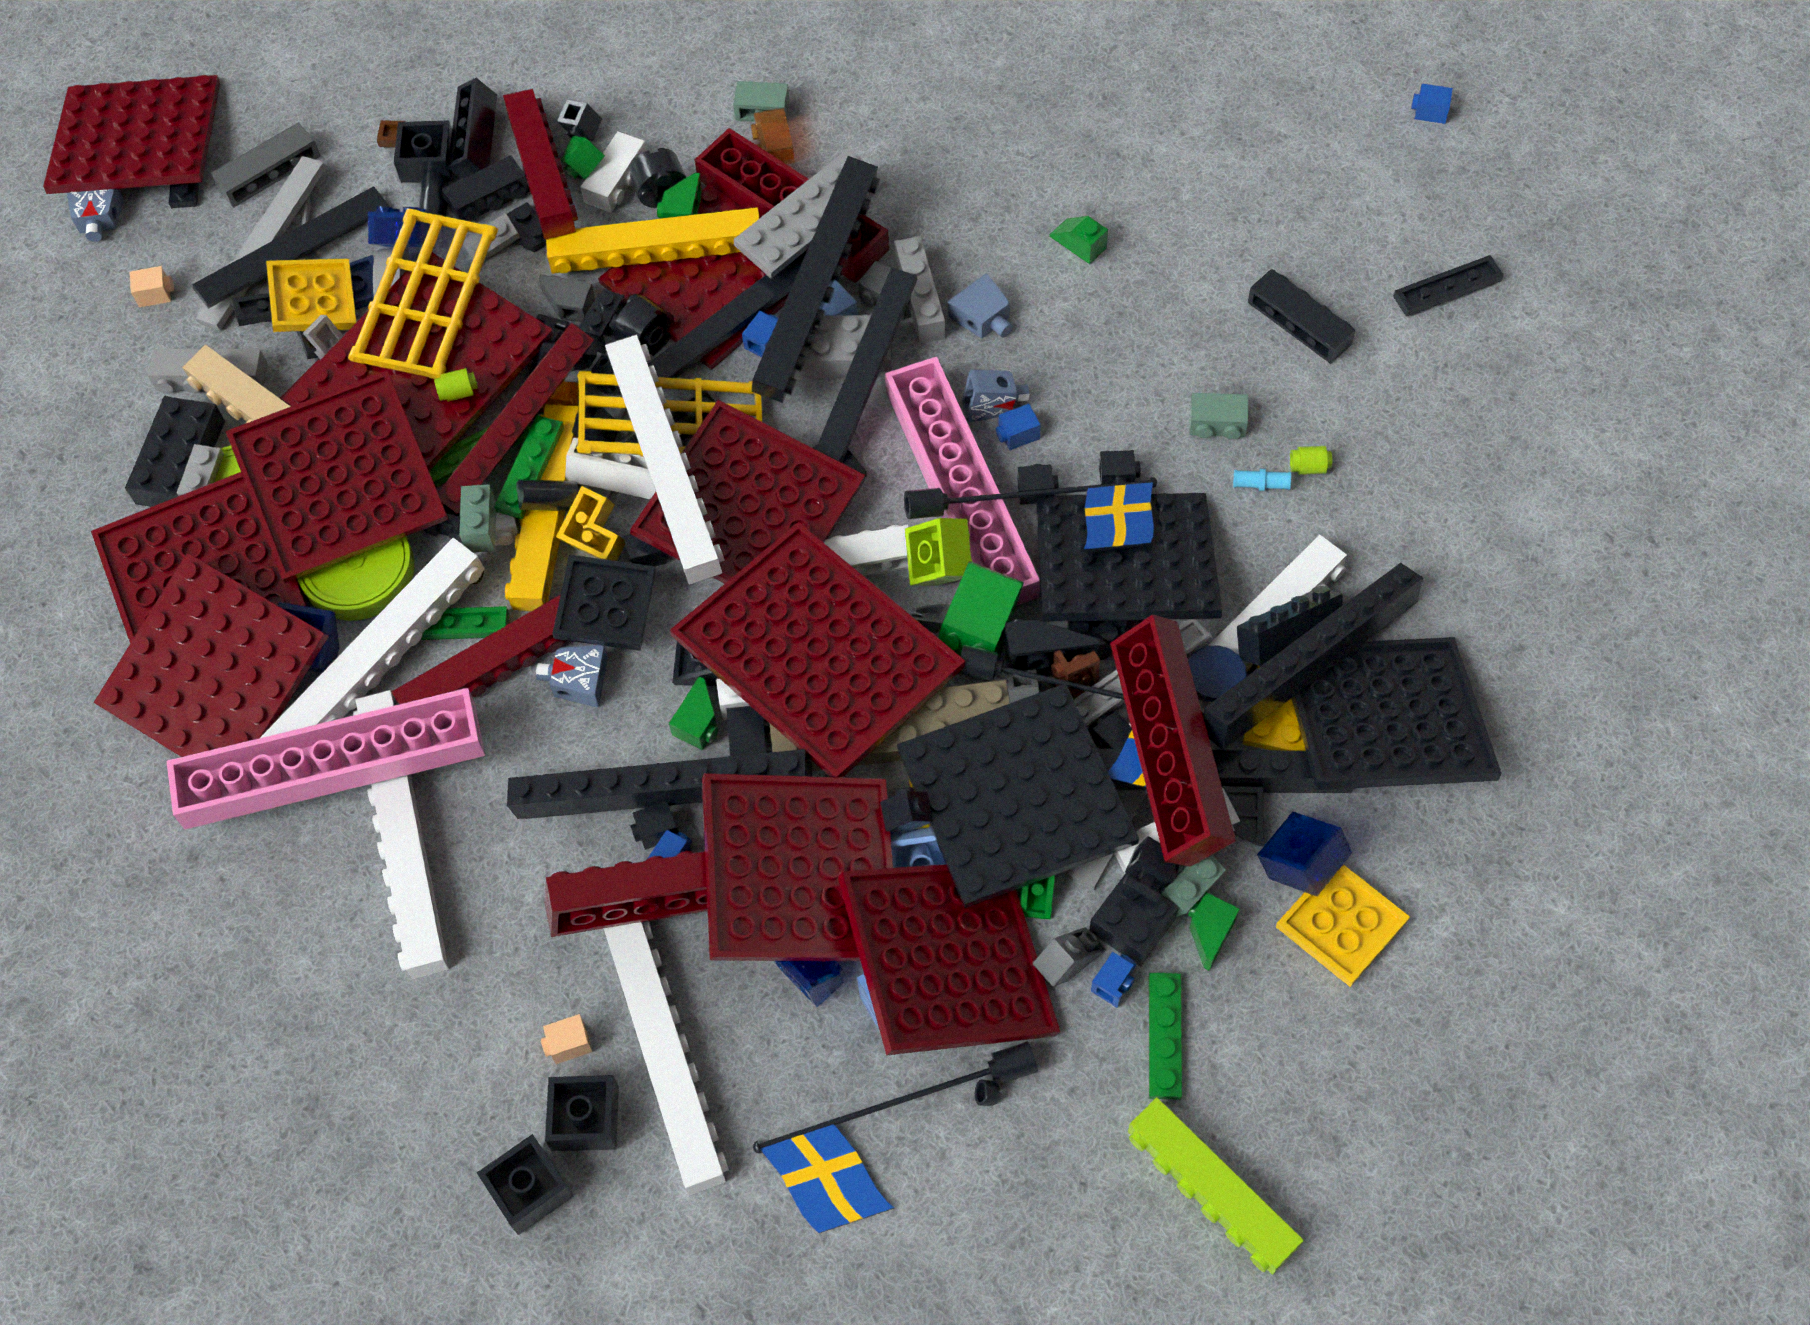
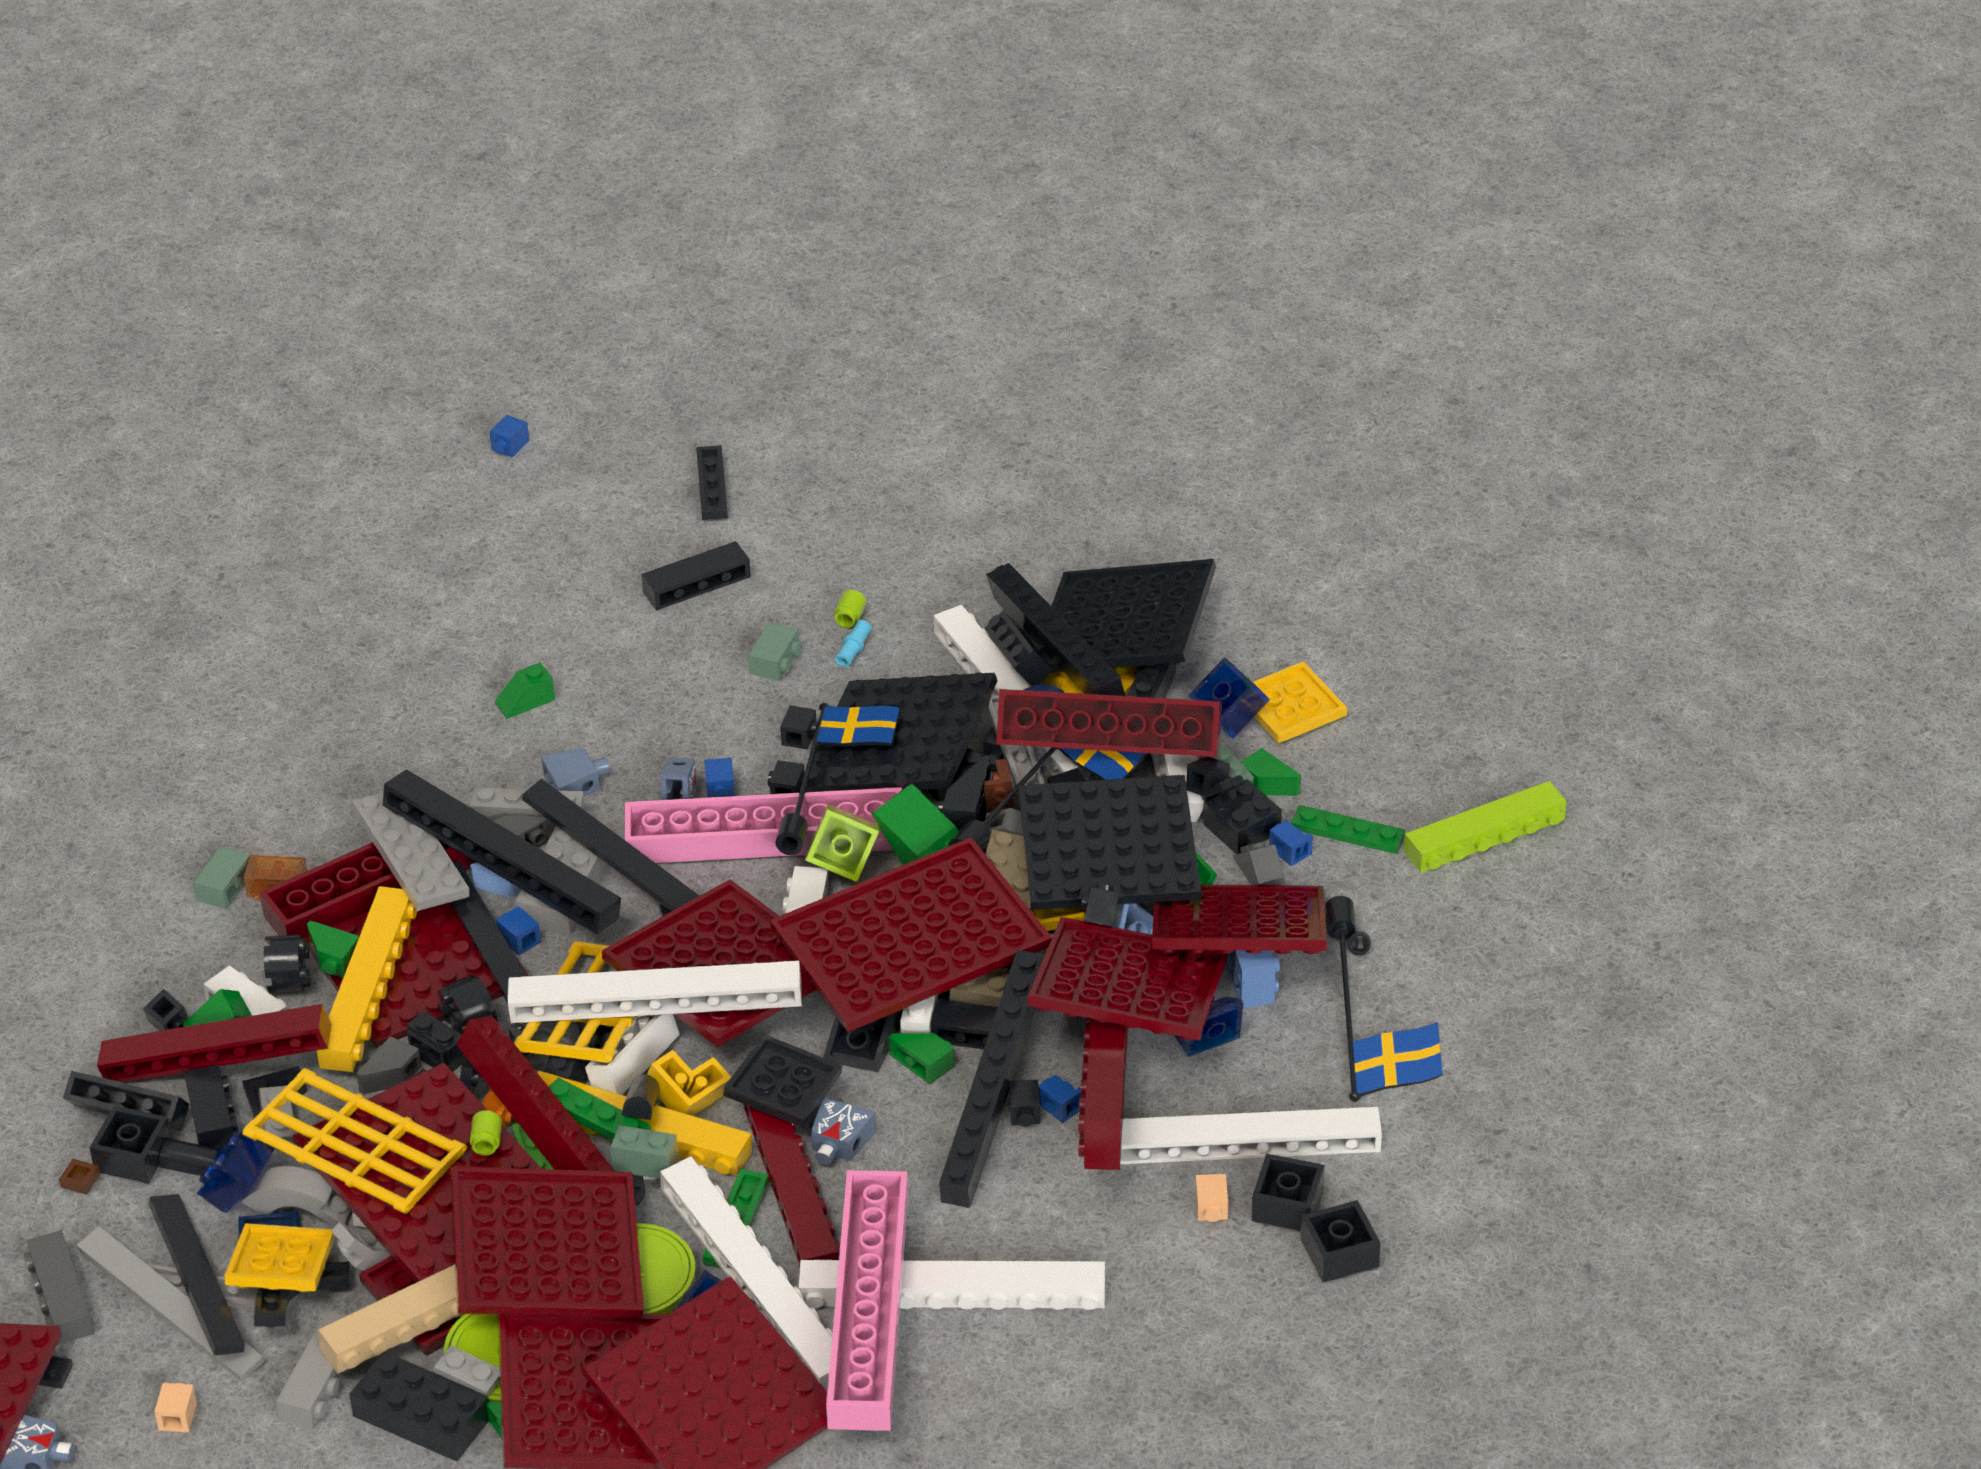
camera: 75 degrees left, 20 degrees down
(642, 552) = (727, 1055): black brick -> none

